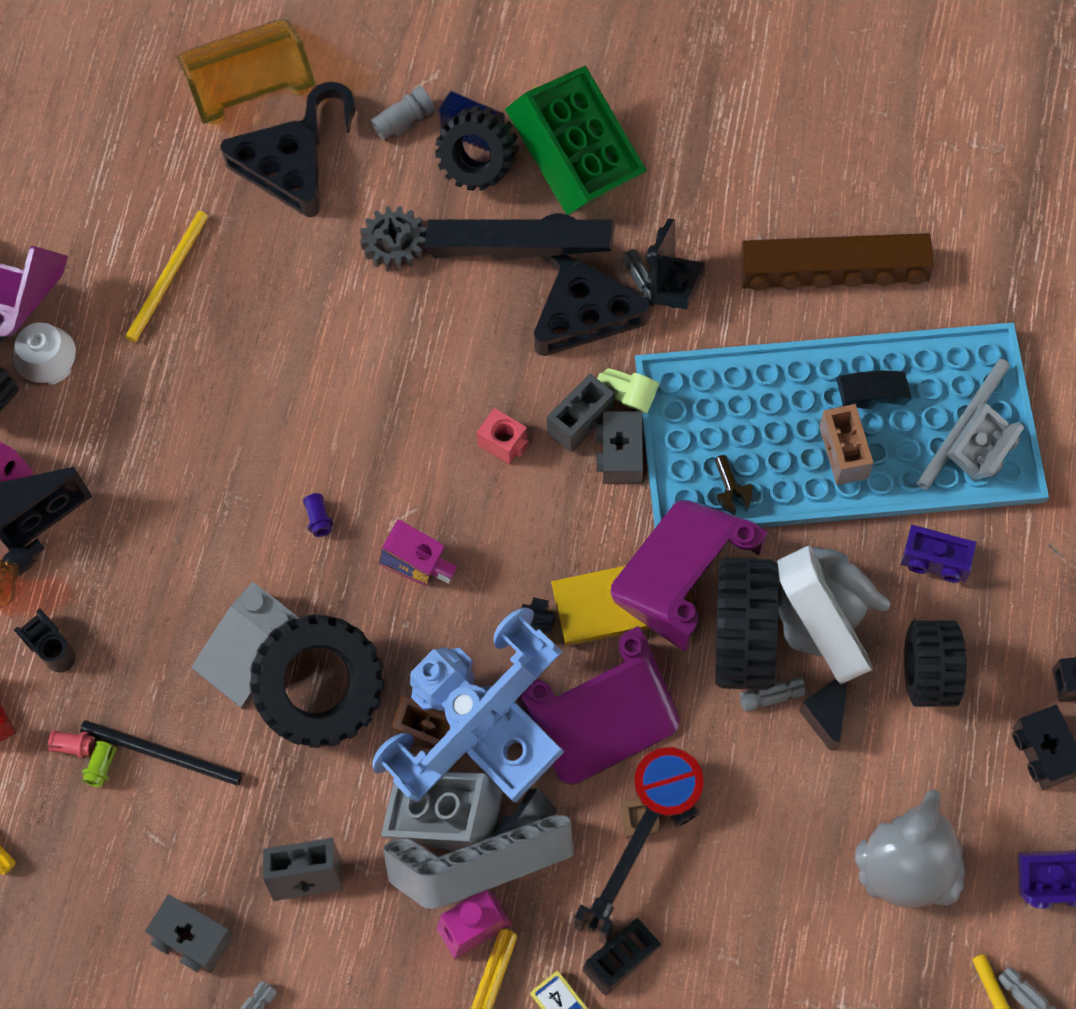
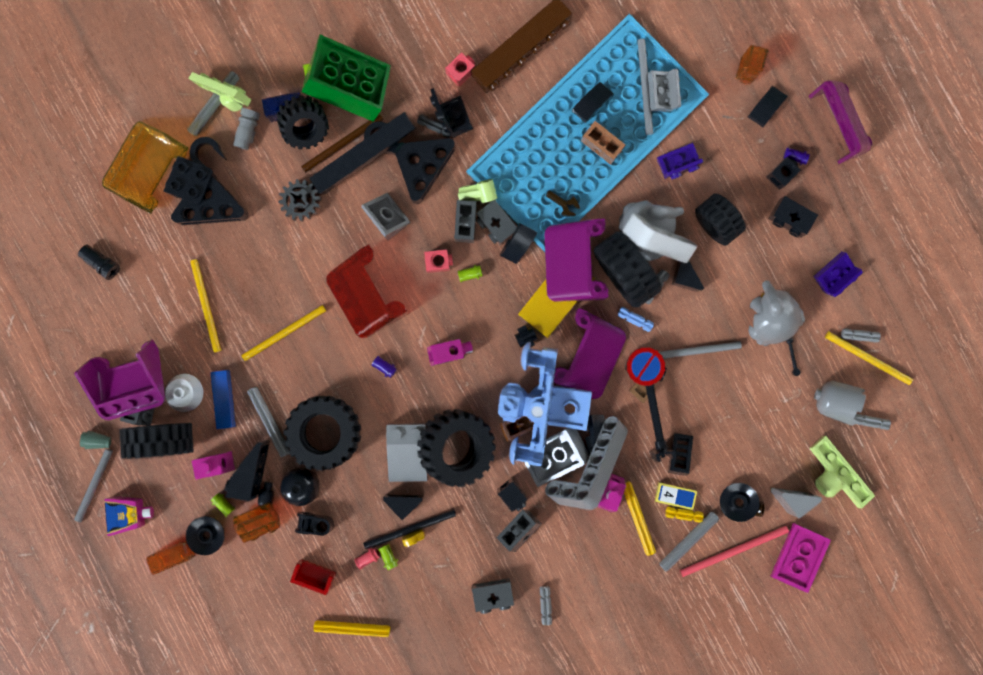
camera: 40 degrees left, 20 degrees up
(73, 581) = (300, 487): none -> black cylinder
(83, 400) = (223, 399): none -> blue slope
(91, 132) = (104, 266): none -> black axle
(111, 470) = (268, 421): none -> light grey axle
(144, 497) = (298, 442): none -> black tyre
(154, 764) = (413, 538): none -> yellow tile
(181, 710) = (402, 504): none -> black slope
(228, 378) = (283, 333): none -> yellow piece
(280, 117) = (188, 180): none -> black bracket
(336, 809) = (512, 495): none -> black brick
(361, 407) = (359, 296): none -> clear red windscreen
(390, 61) = (210, 107): none -> light grey axle
(418, 56) = (230, 95): none -> yellowish green plate
(484, 334) = (386, 215): none -> light grey slope
(491, 212) = (338, 145): none -> reddish brown piece
(532, 485) = (470, 273): none -> lime pin
(627, 491) = (518, 244): none -> black slope
(709, 716) = (635, 319): none -> light blue axle
(723, 223) = (457, 76): none -> coral brick
(768, 830) = (701, 349): none -> light grey piece
(889, 975) = (796, 372): none -> black hinge

